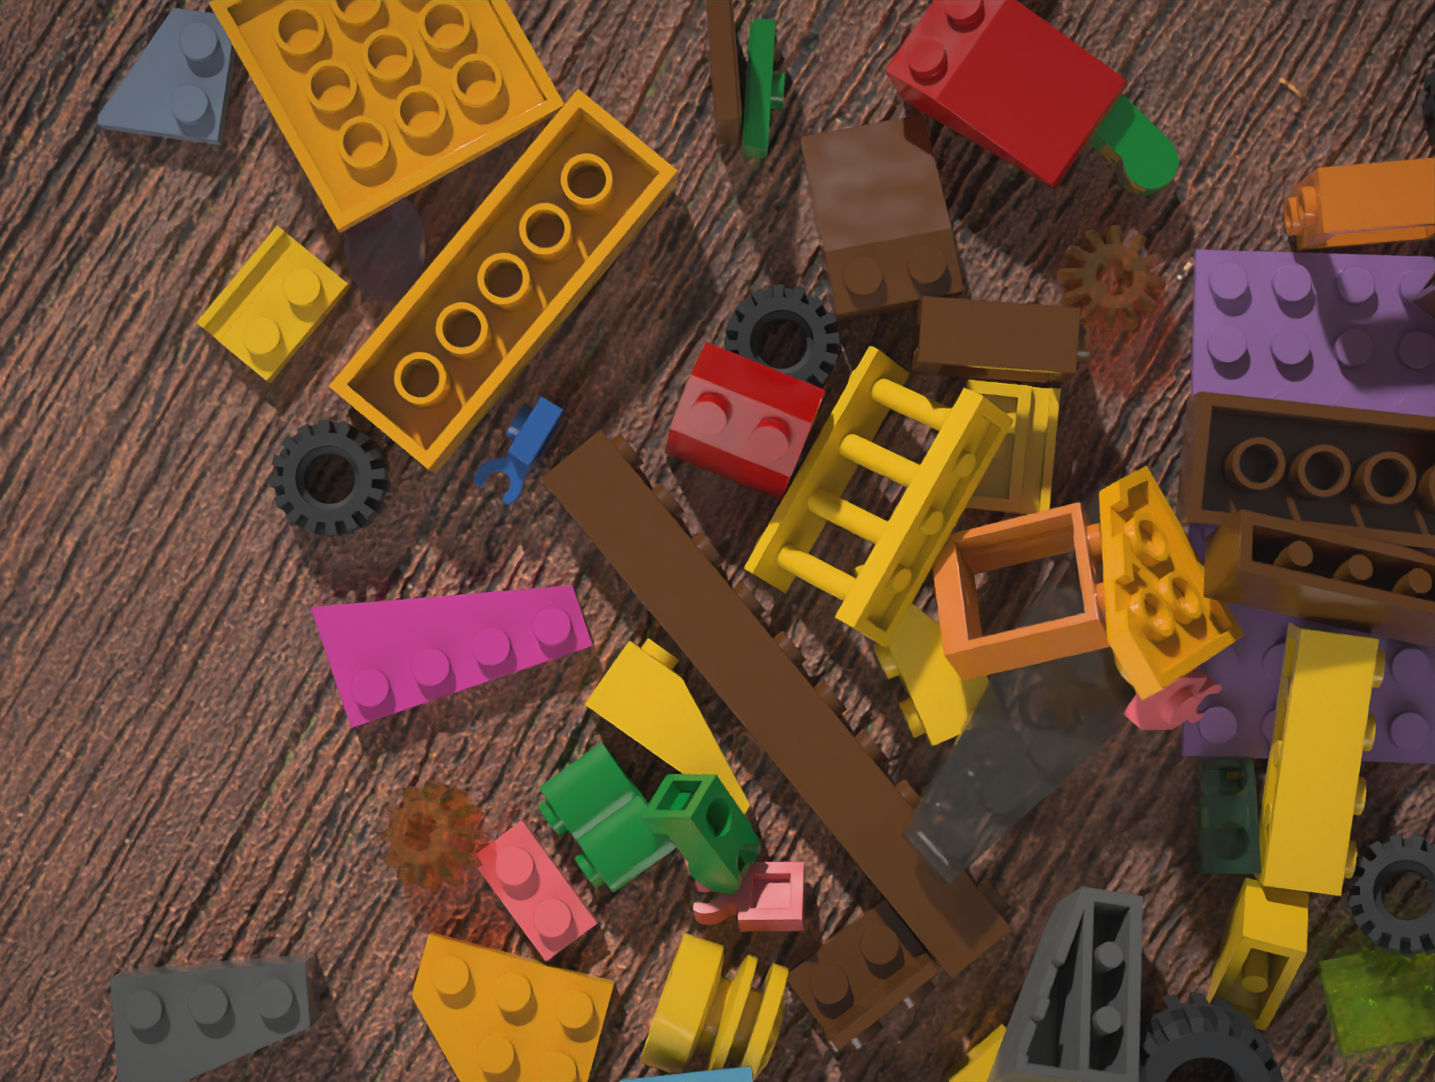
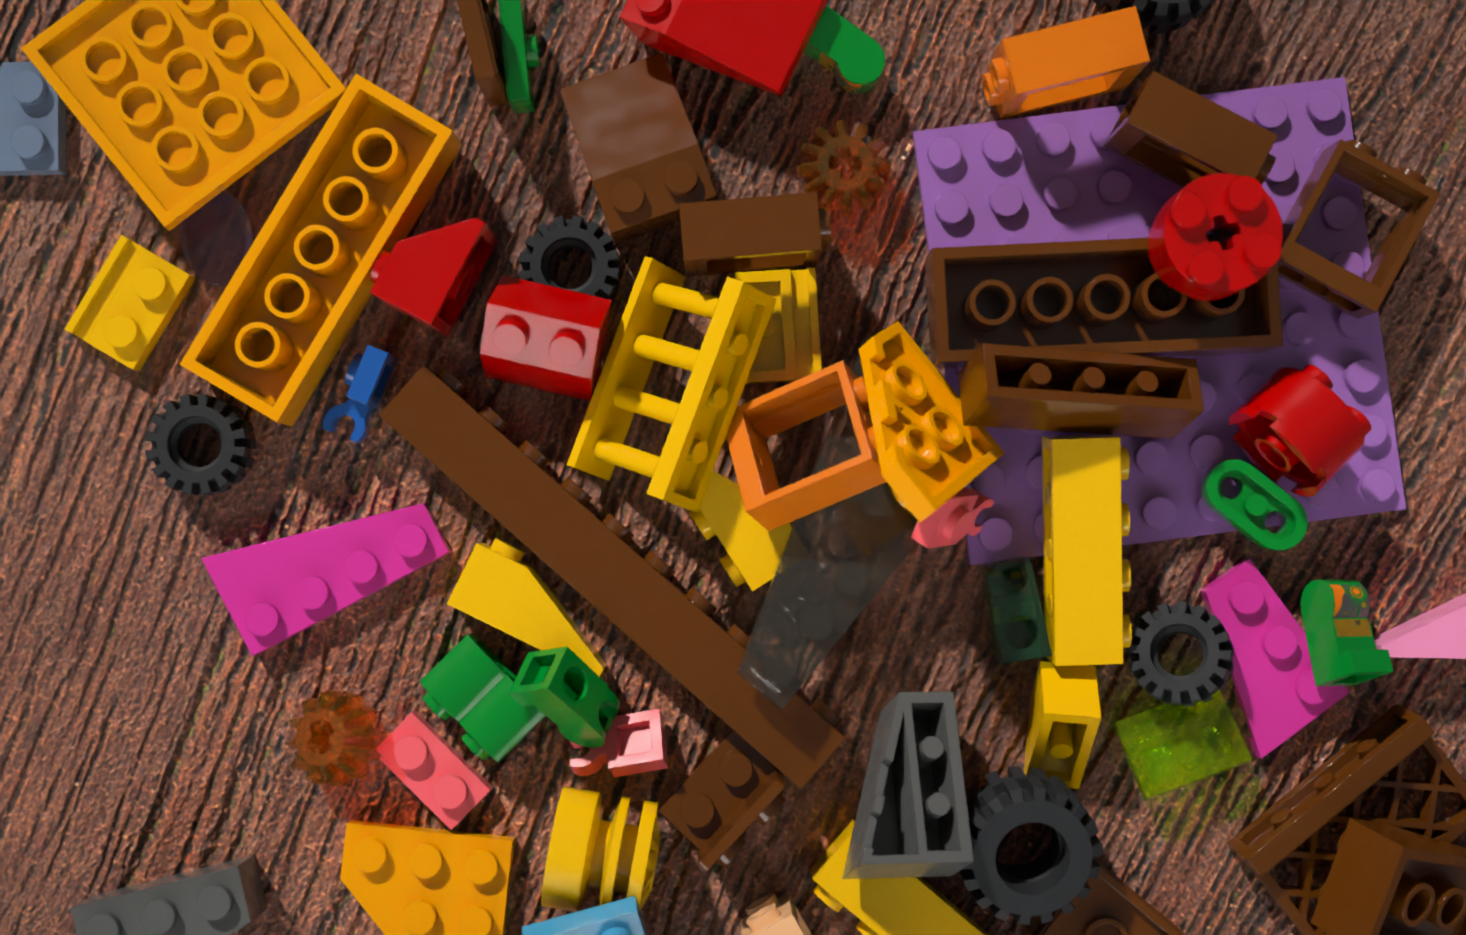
camera: 20 degrees left, 0 degrees up
(628, 328) = (434, 272): none -> red slope

